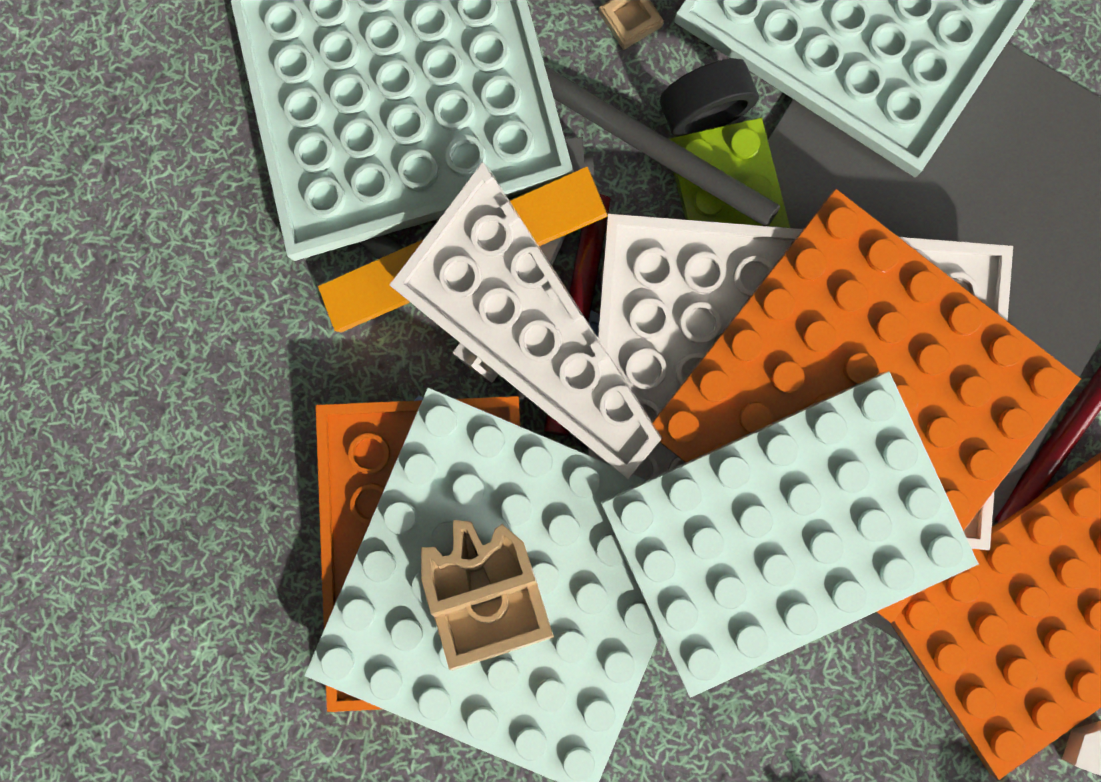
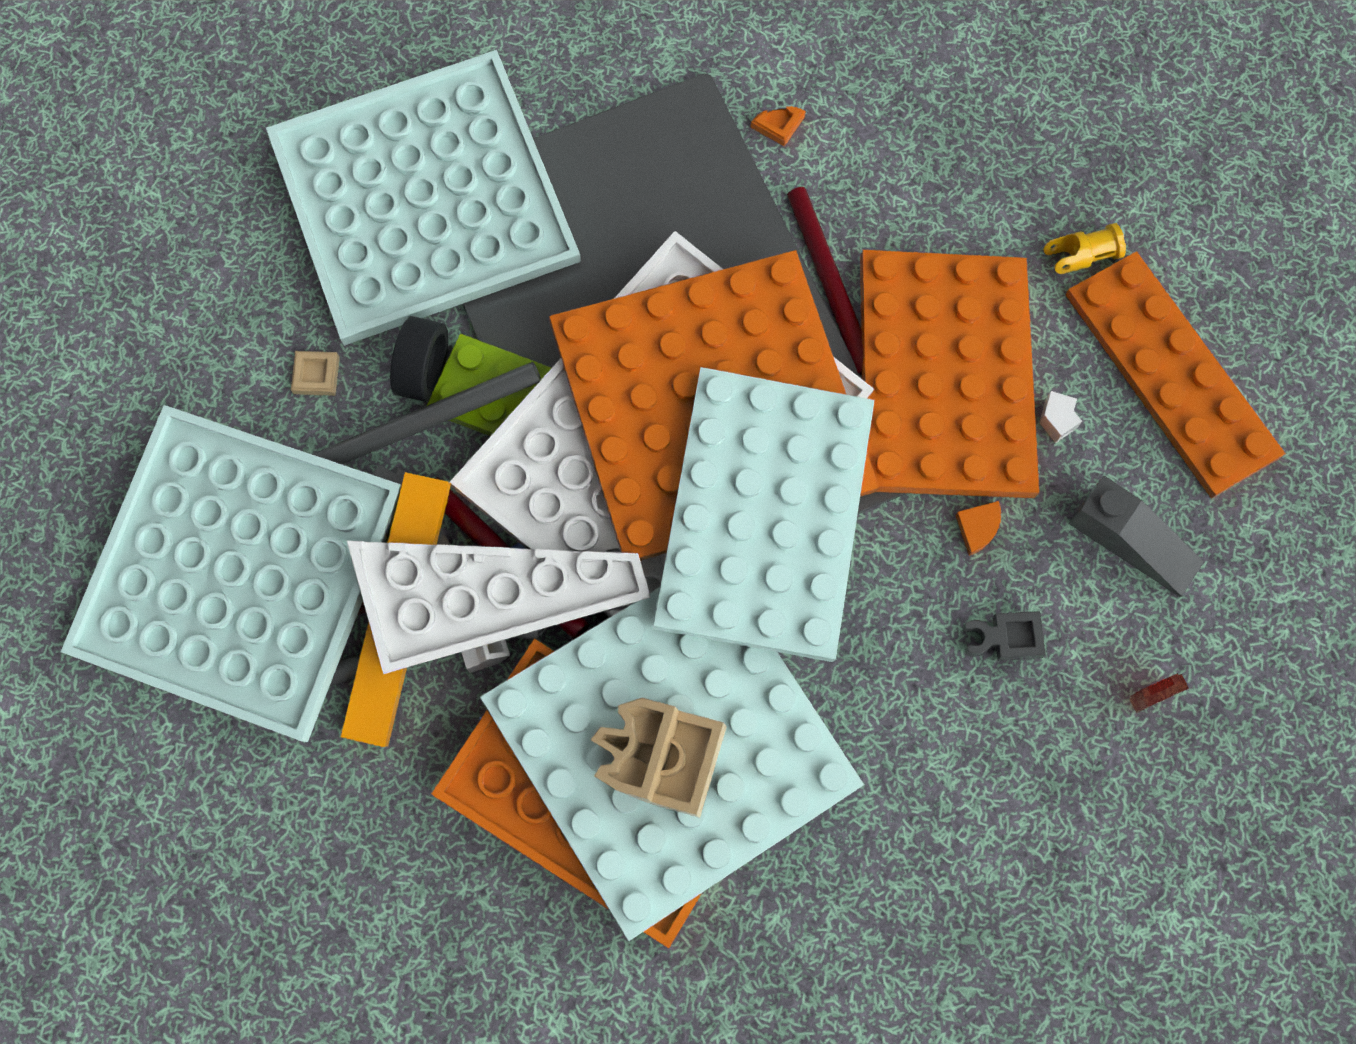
camera: 55 degrees left, 10 degrees down
(923, 739) = (979, 525): none -> orange tile

